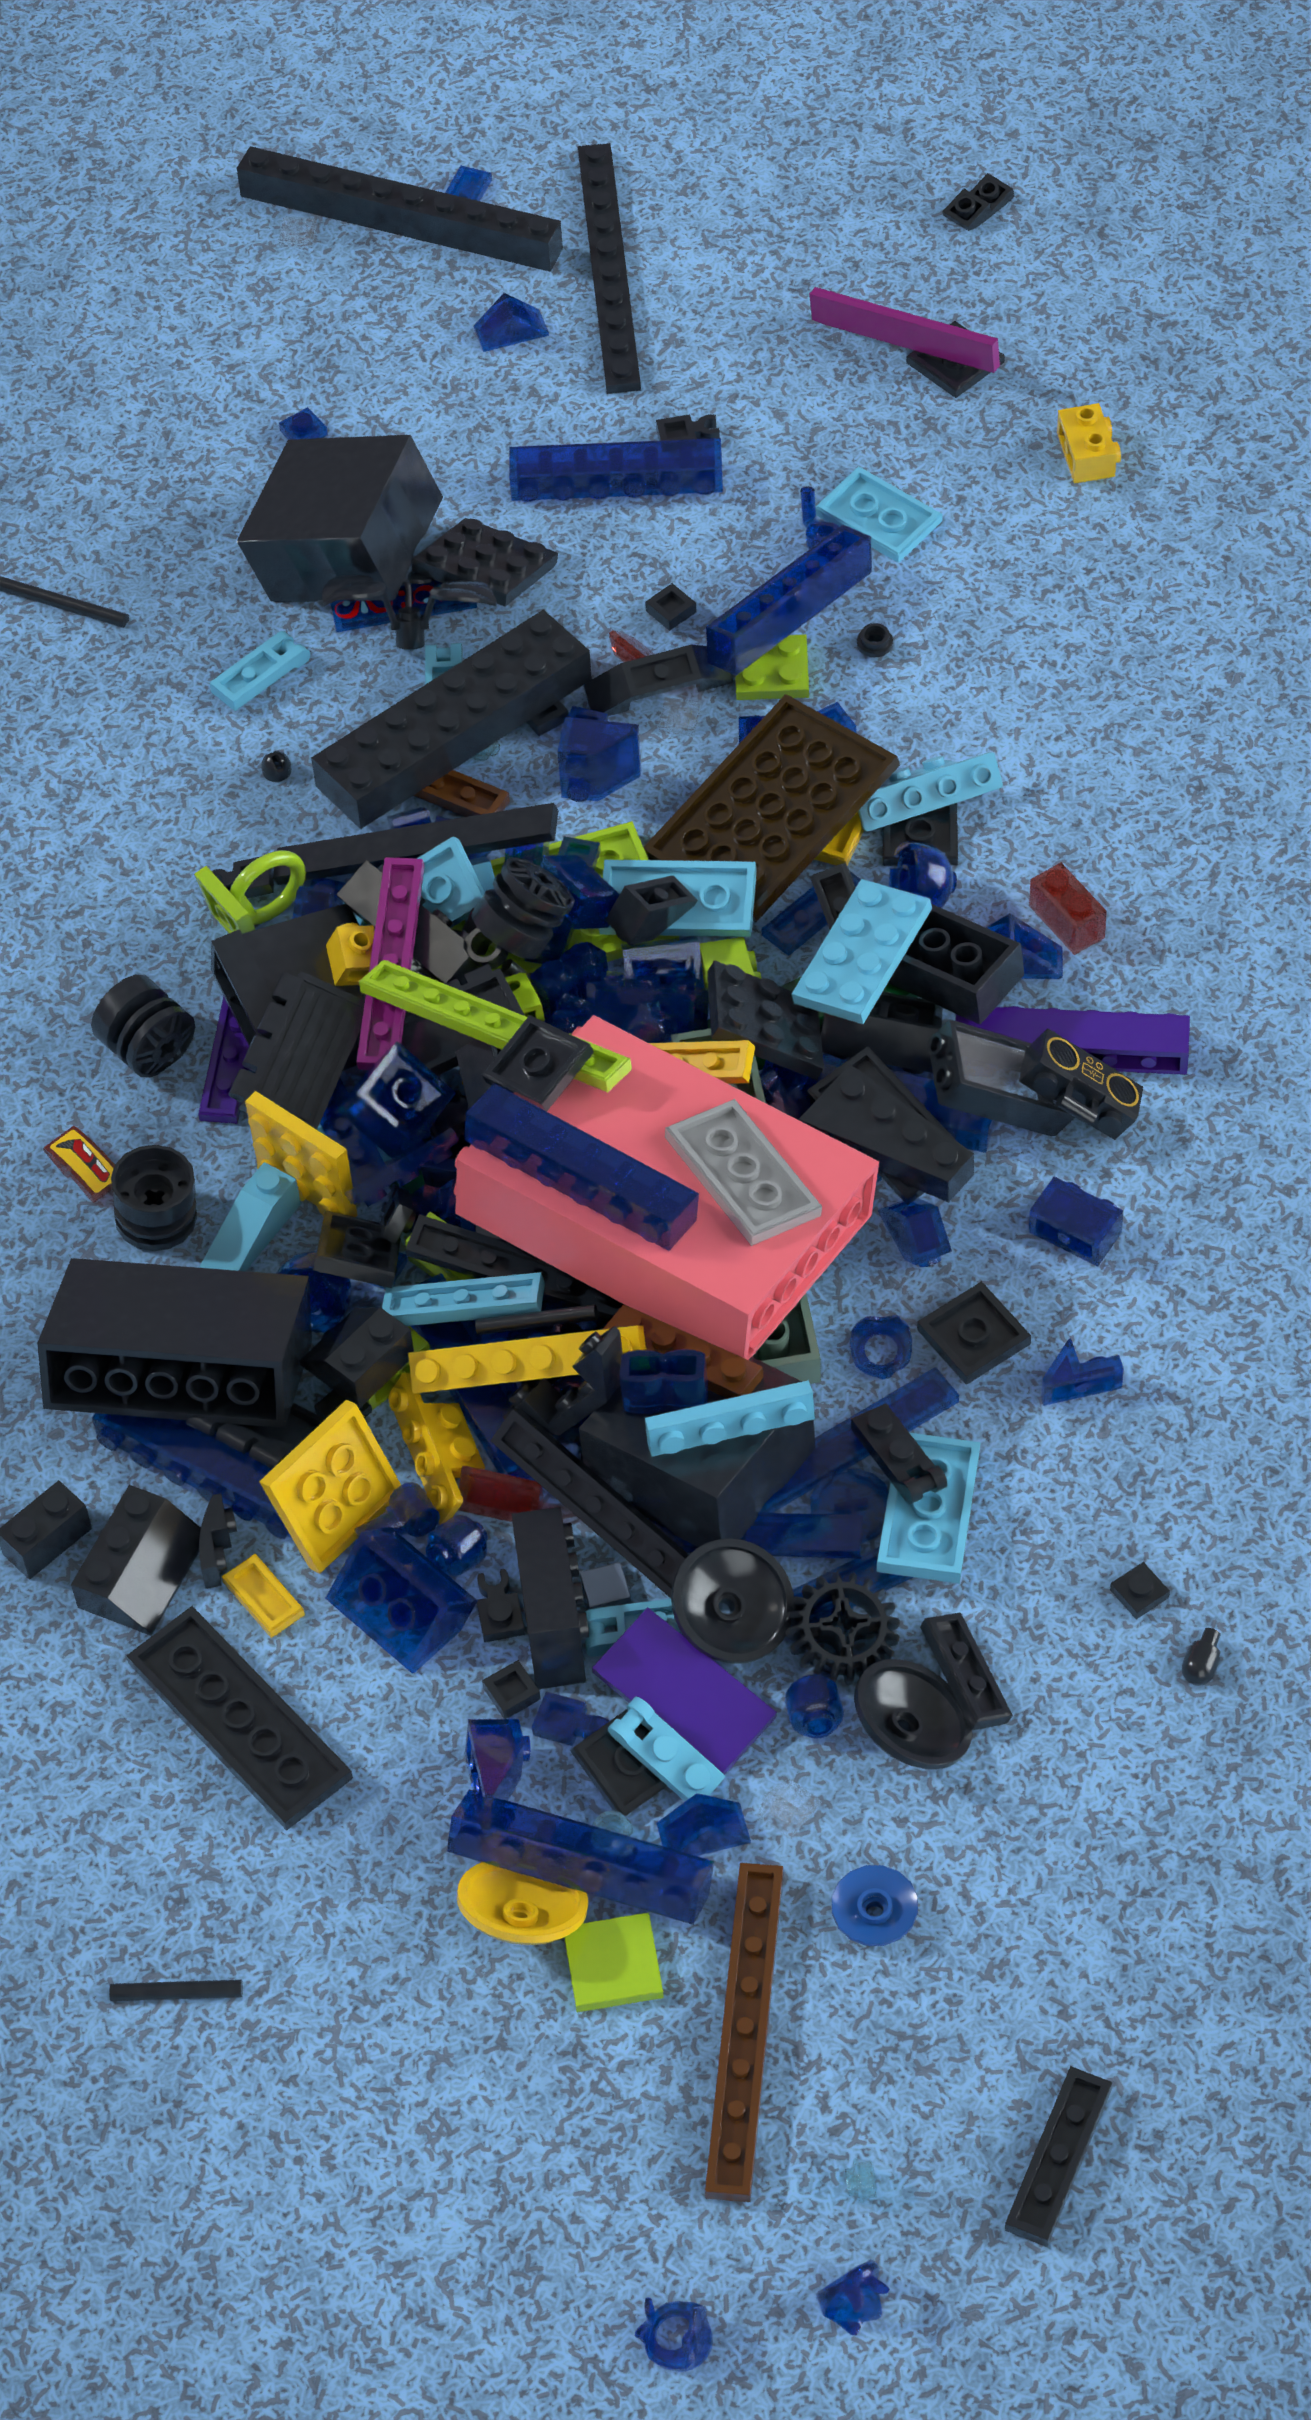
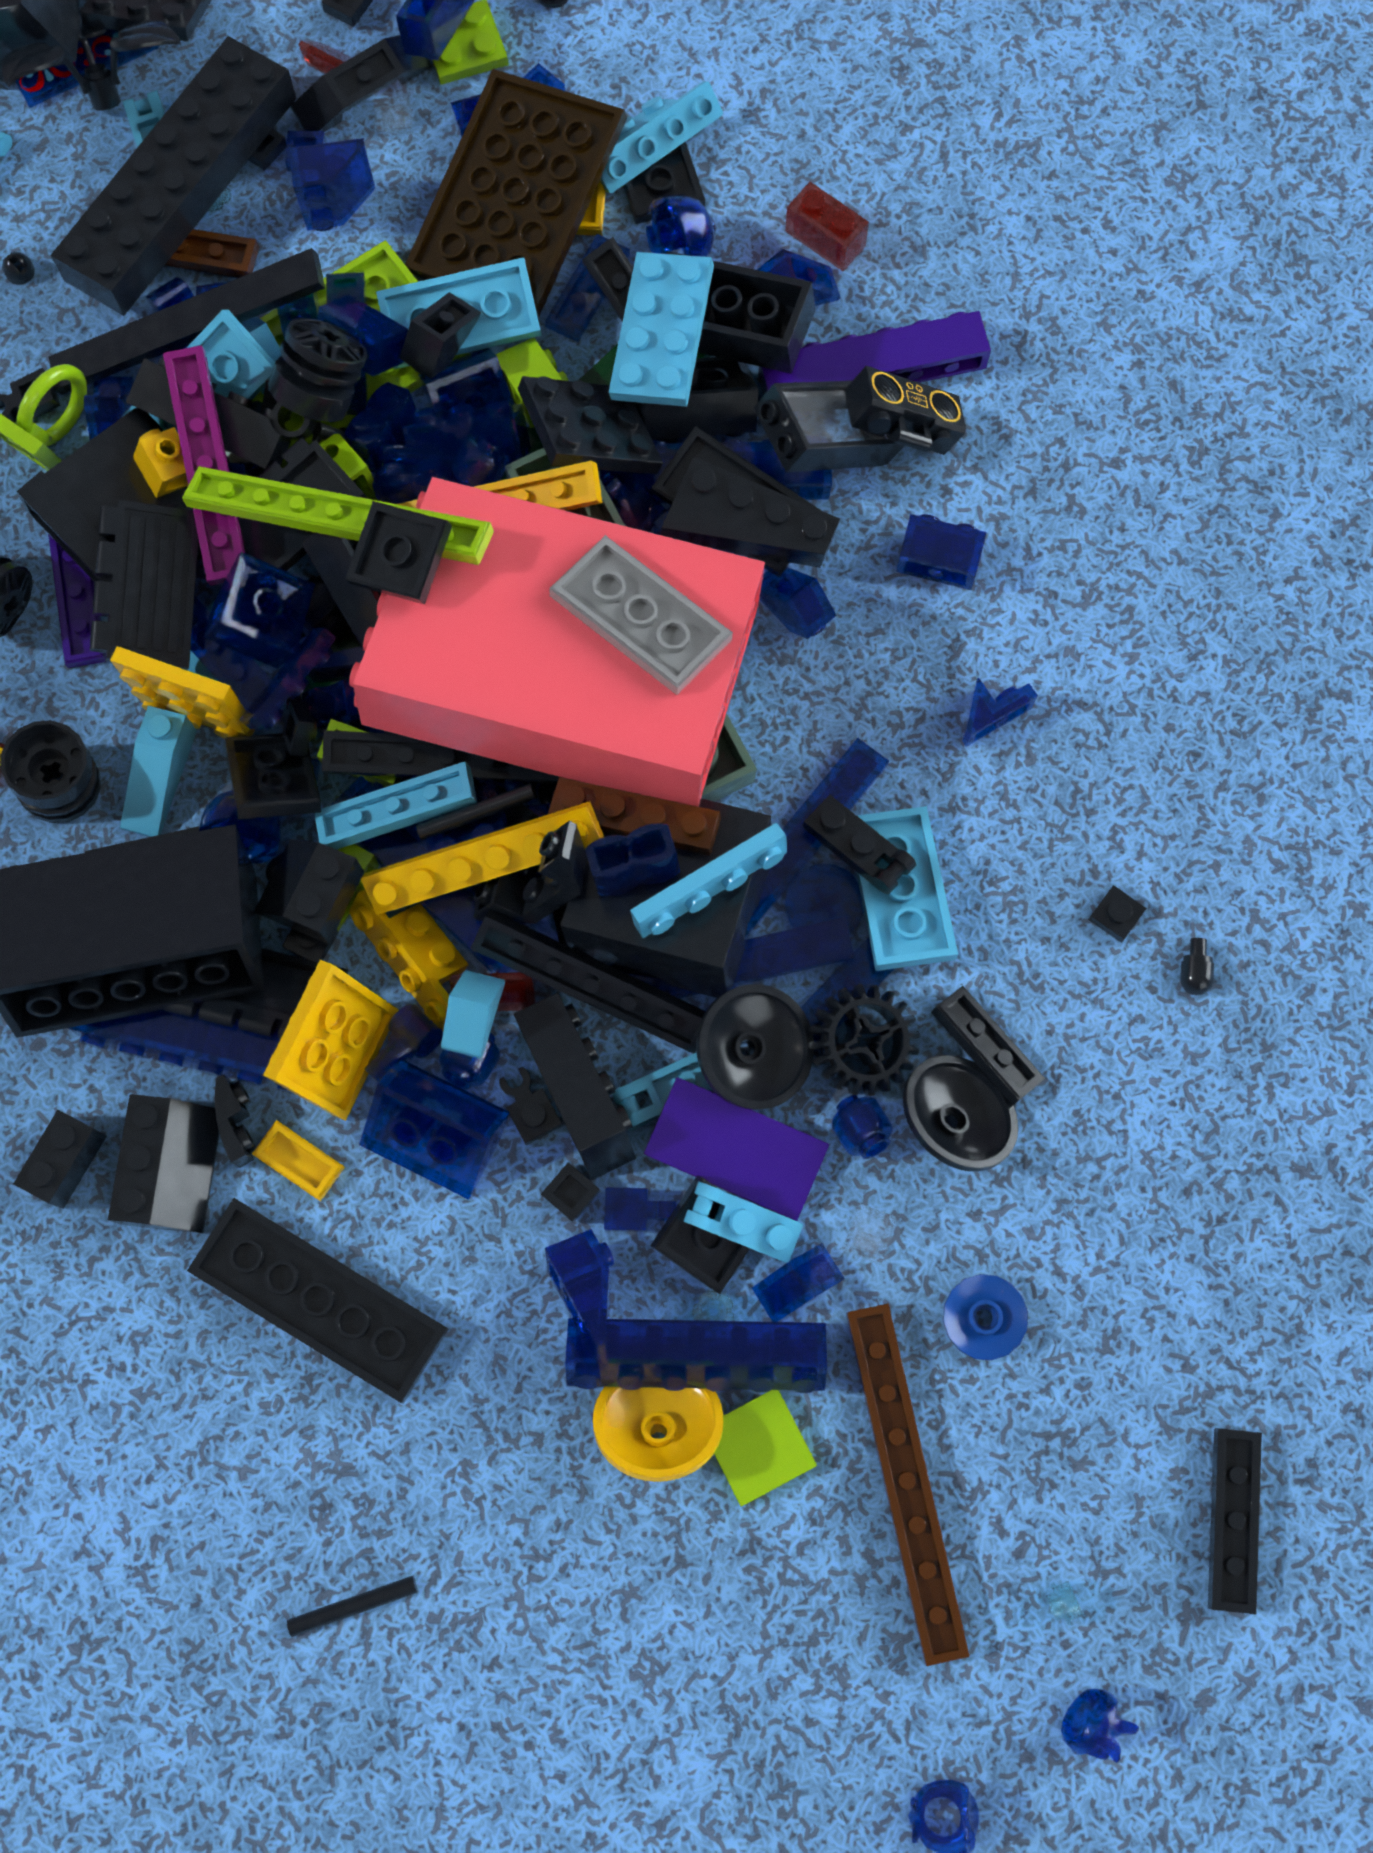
camera: 20 degrees left, 20 degrees up
(470, 1498) = (471, 1013): none -> medium azure slope
(581, 1167) = (481, 660): clear blue brick -> none
(605, 1586) = (623, 1056): sand blue tile -> none
(872, 1326) = (807, 709): clear blue piece -> none
(974, 1332) = (881, 692): black plate -> none

